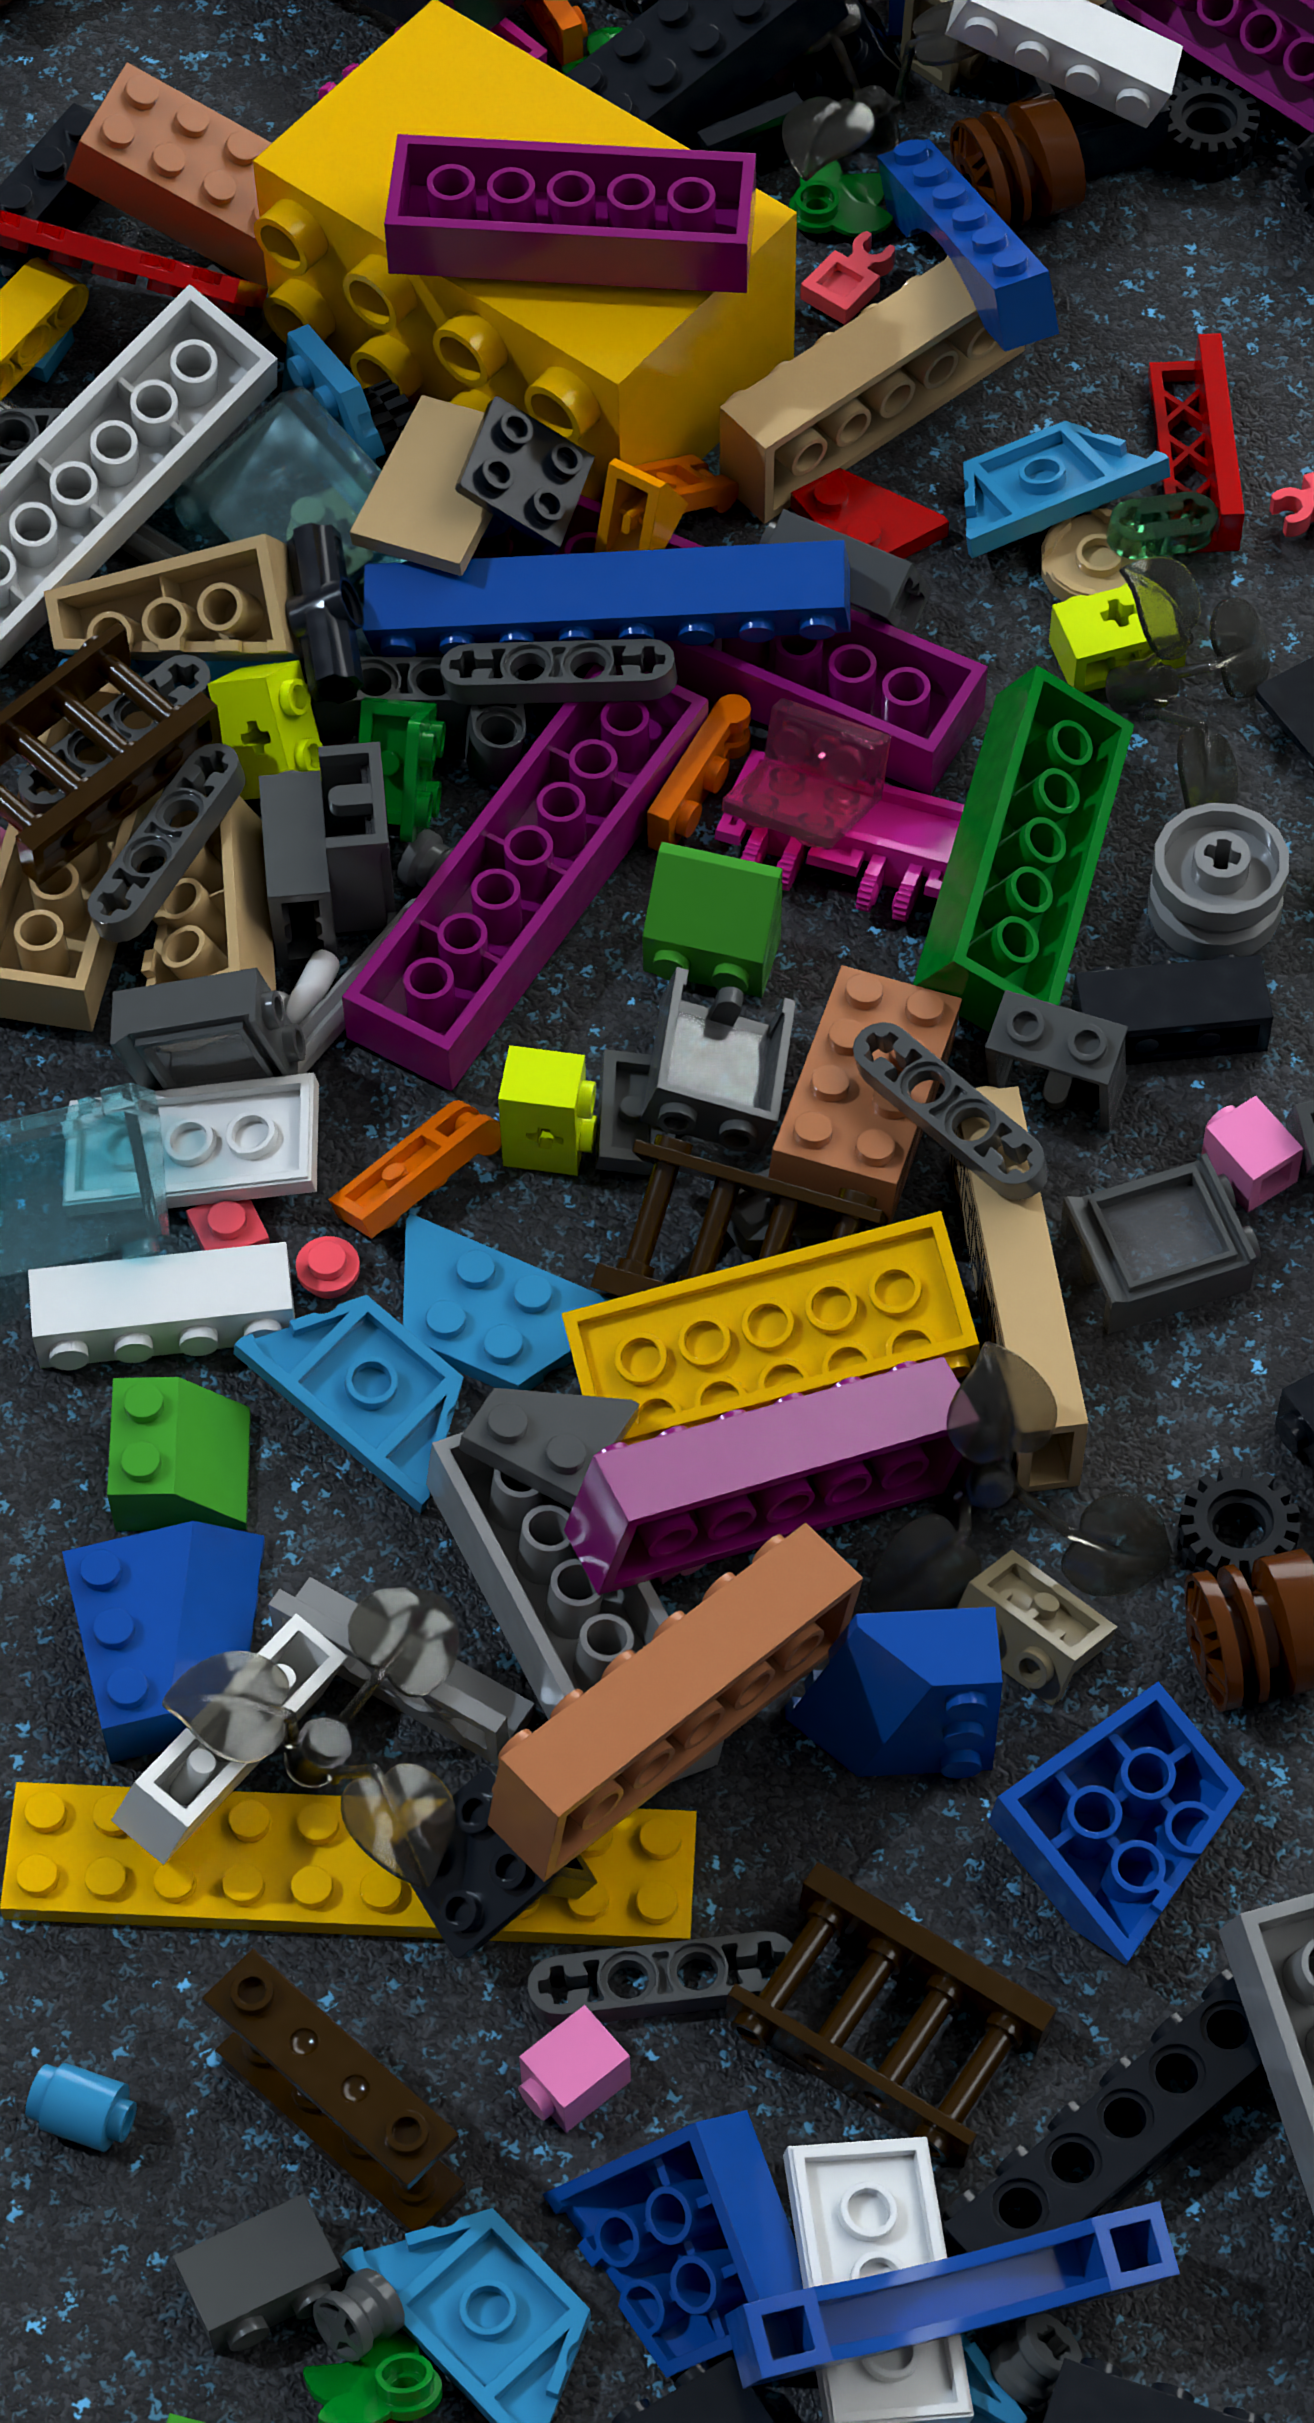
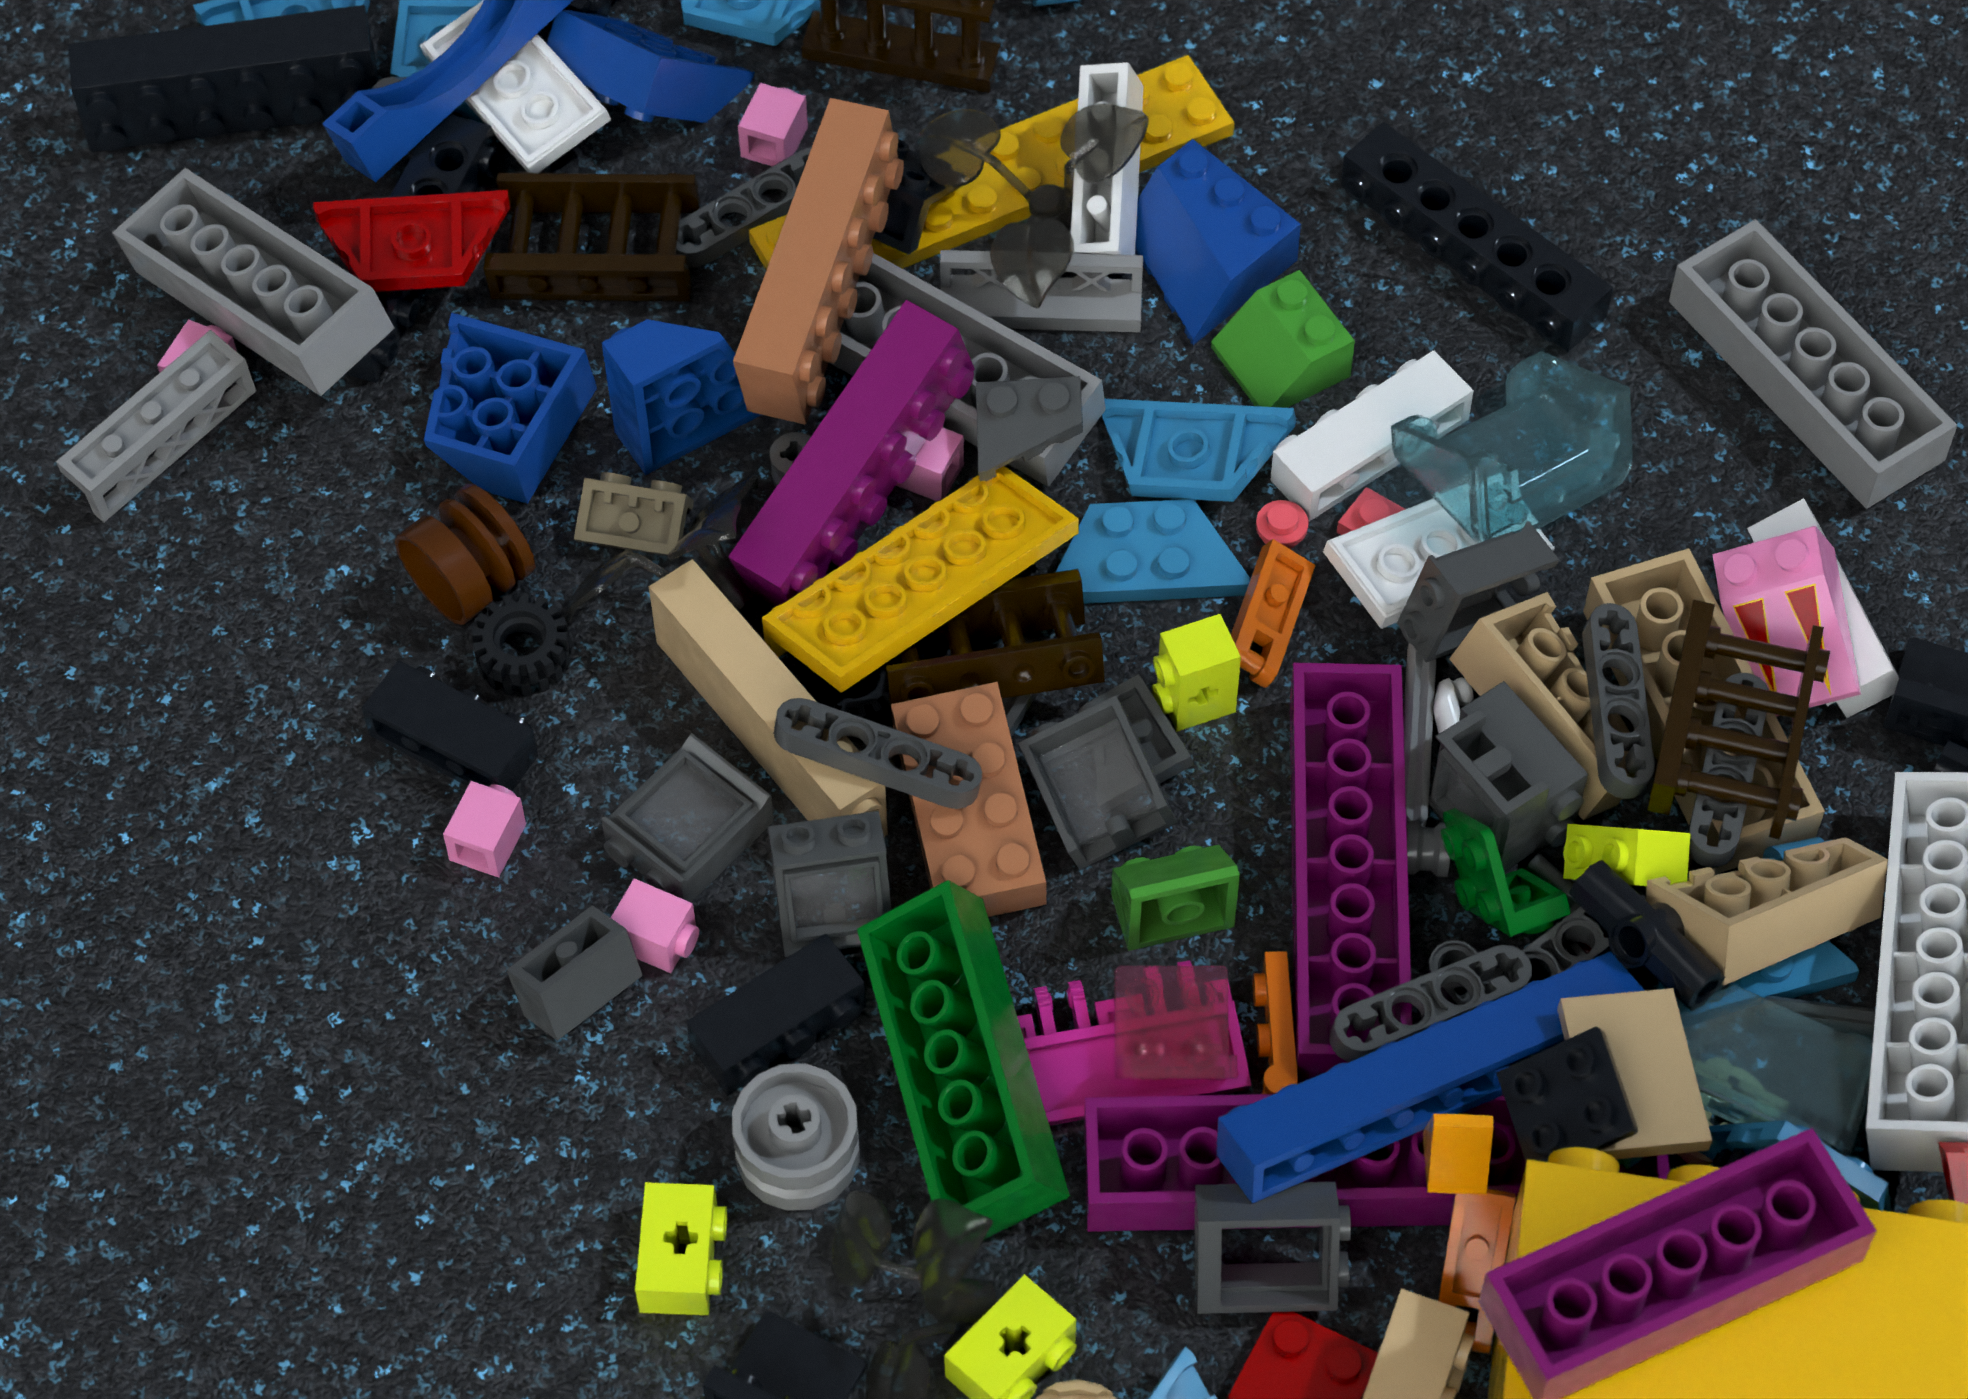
camera: 150 degrees right, 0 degrees up
(1132, 2070) = (413, 238): none -> red wing

